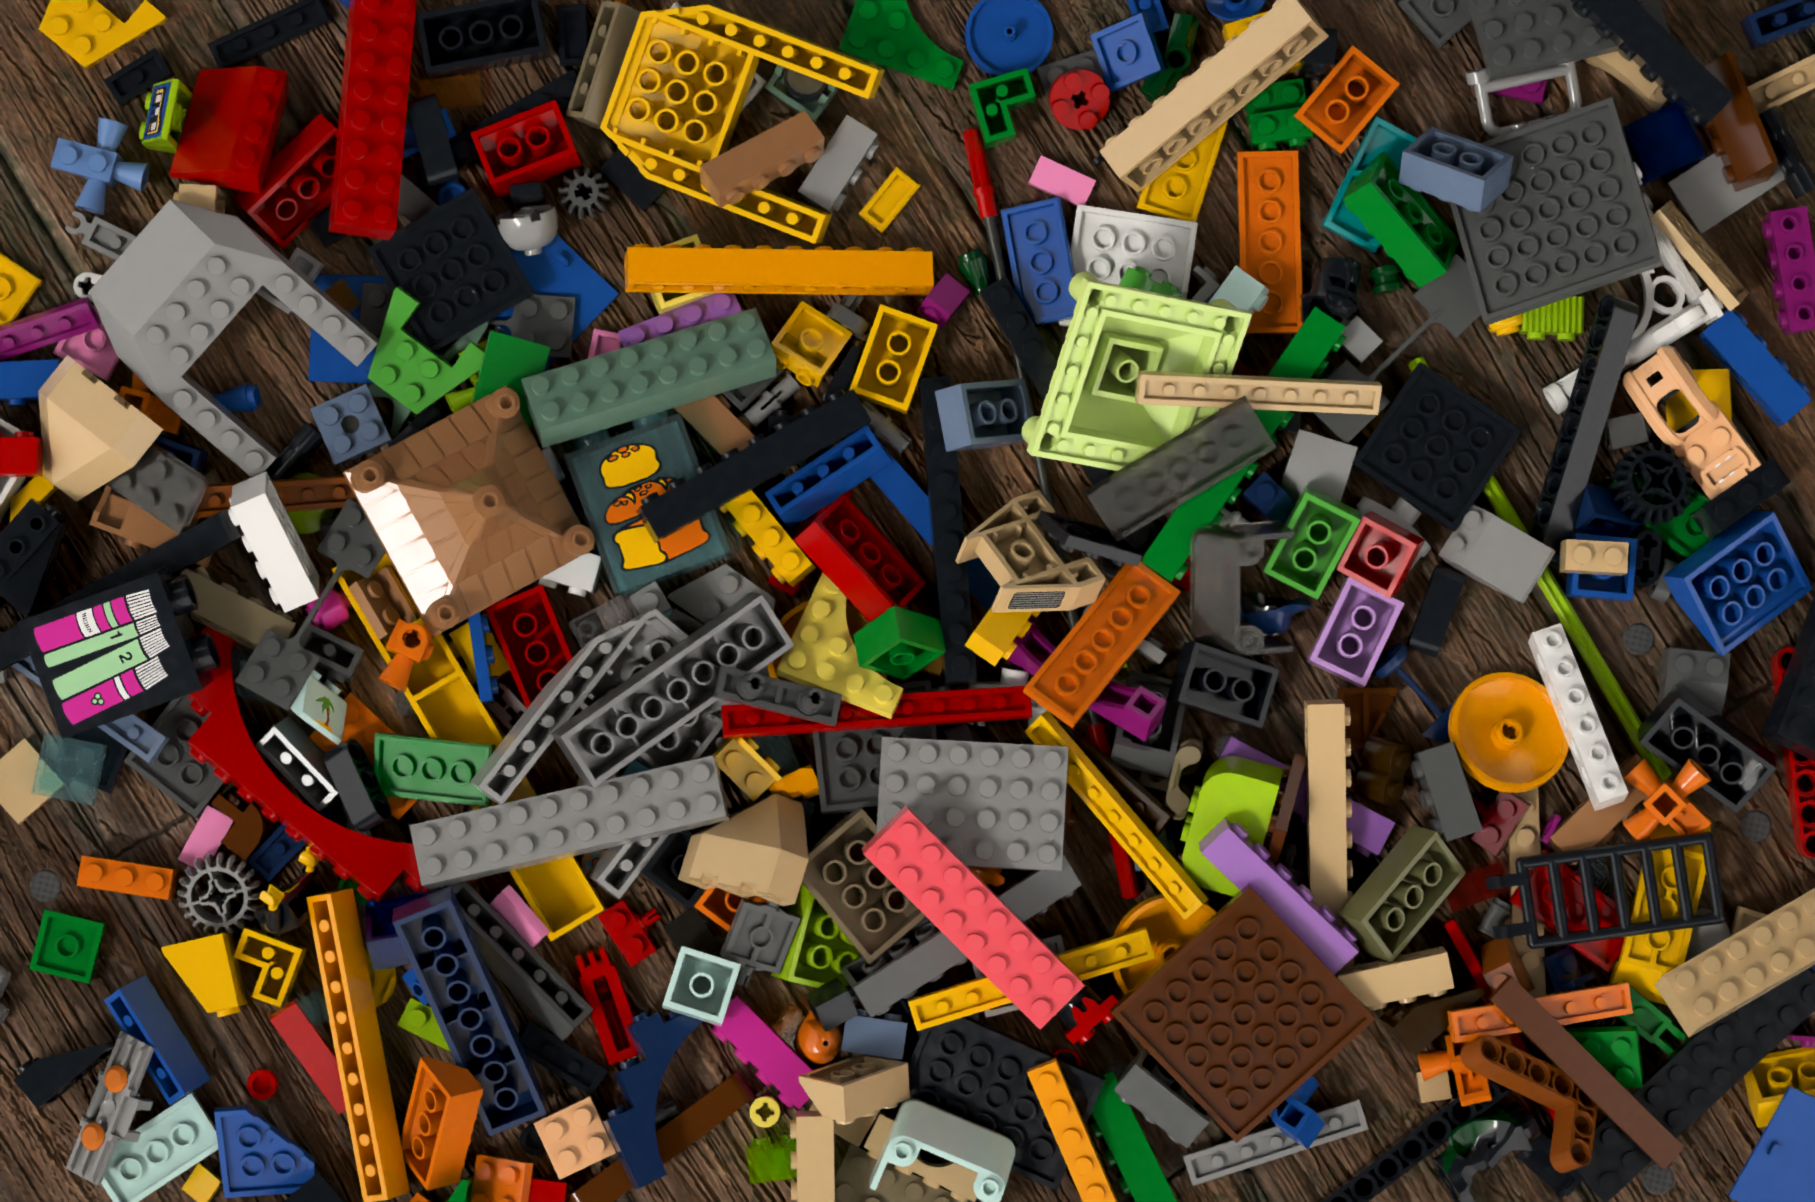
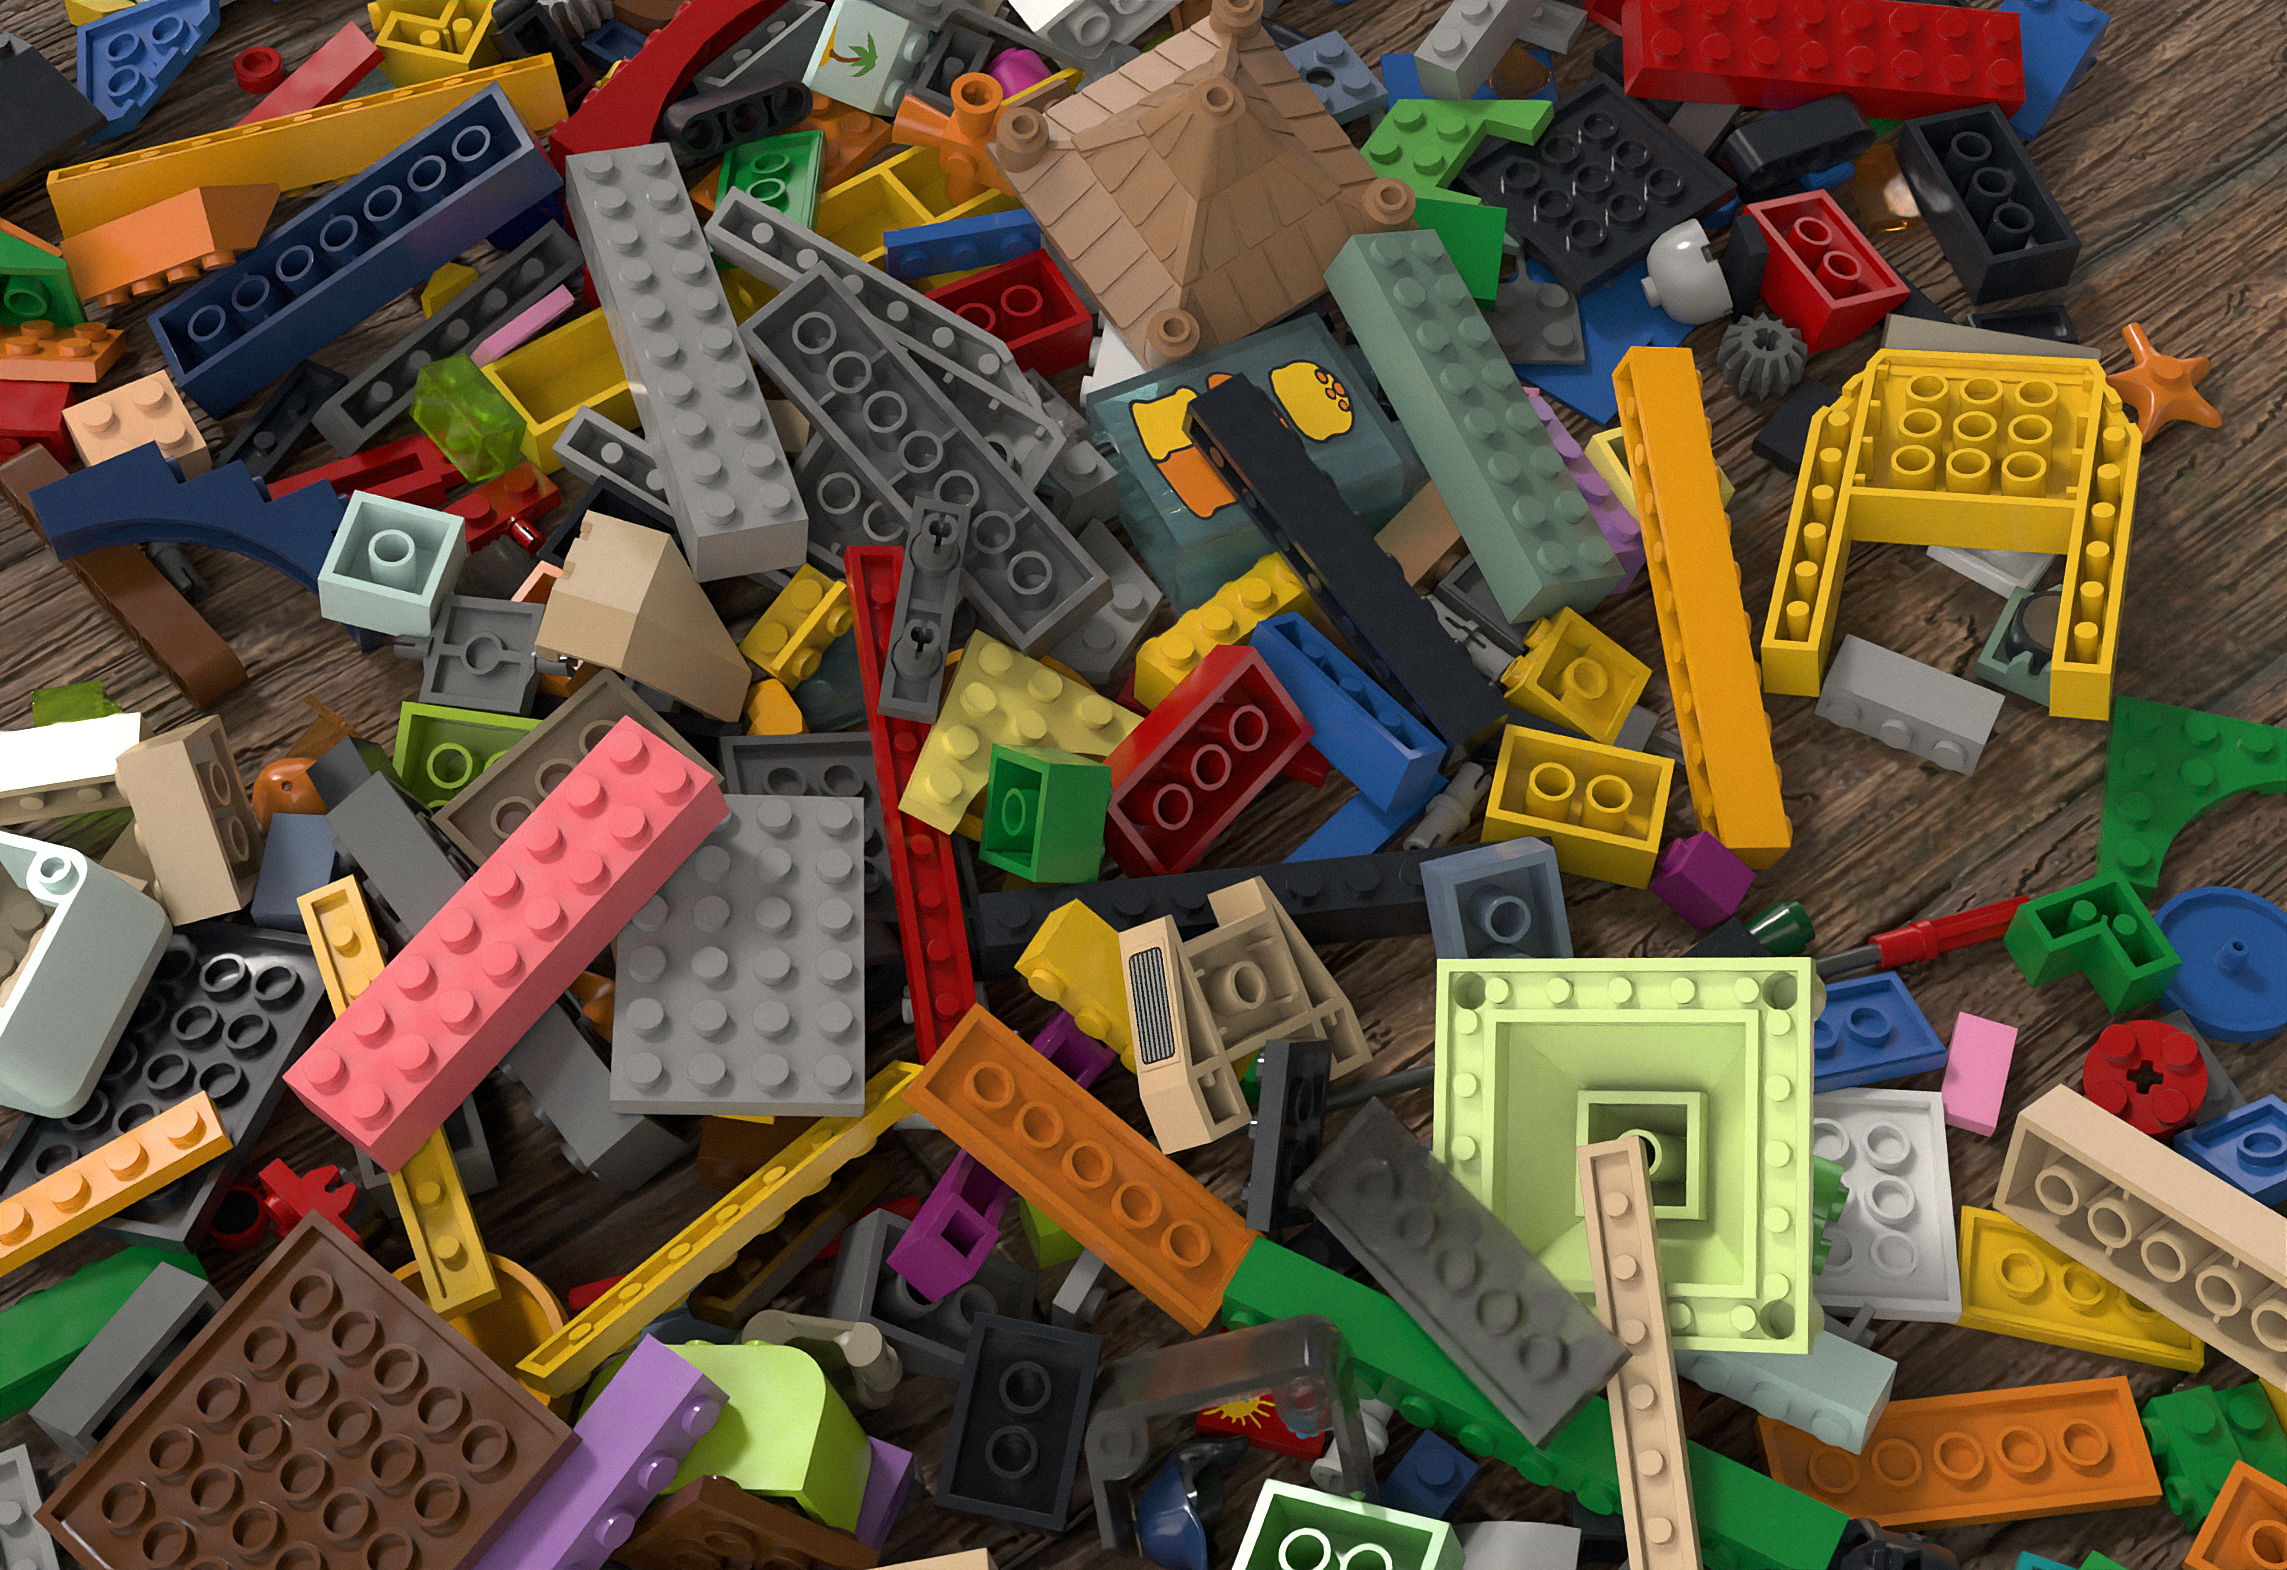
camera: 85 degrees right, 30 degrees down
(581, 948) = (467, 417): none -> clear neon green brick
(762, 159) = (1892, 553): medium nougat brick -> none
(765, 1050) = (270, 713): dark pink brick -> none
(770, 1111) = (168, 704): light yellow wheel -> none
(889, 200) = (1865, 797): yellow tile -> none

